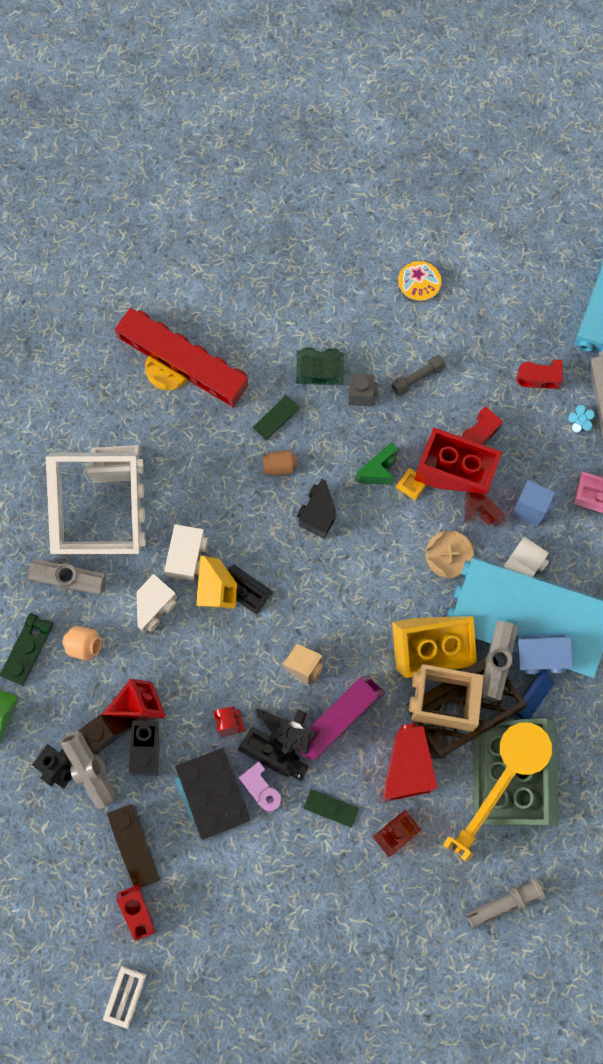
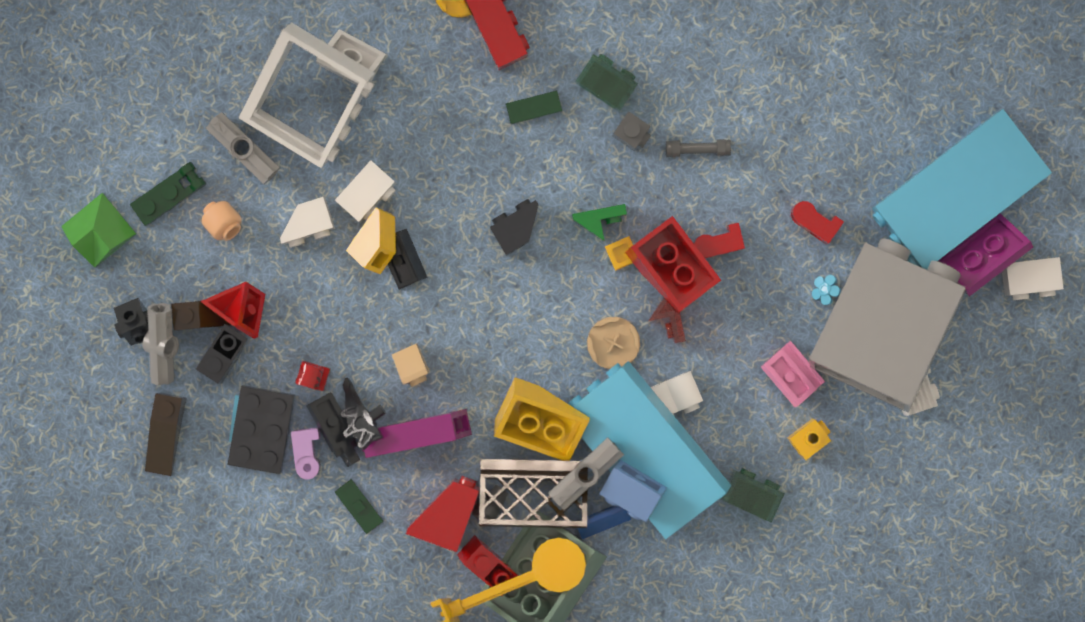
camera: 30 degrees right, 15 degrees up
(133, 973) = (101, 541): white tile -> none
(136, 912) = (134, 491): red leg -> none
(279, 463) = (507, 157): medium nougat brick -> none
(396, 833) = (400, 565): clear red slope -> none
(419, 282) = (762, 50): tile -> none
(463, 788) = (485, 563): none -> red slope
(473, 697) = (537, 496): tan window -> none
(534, 503) = (719, 347): medium blue brick -> none

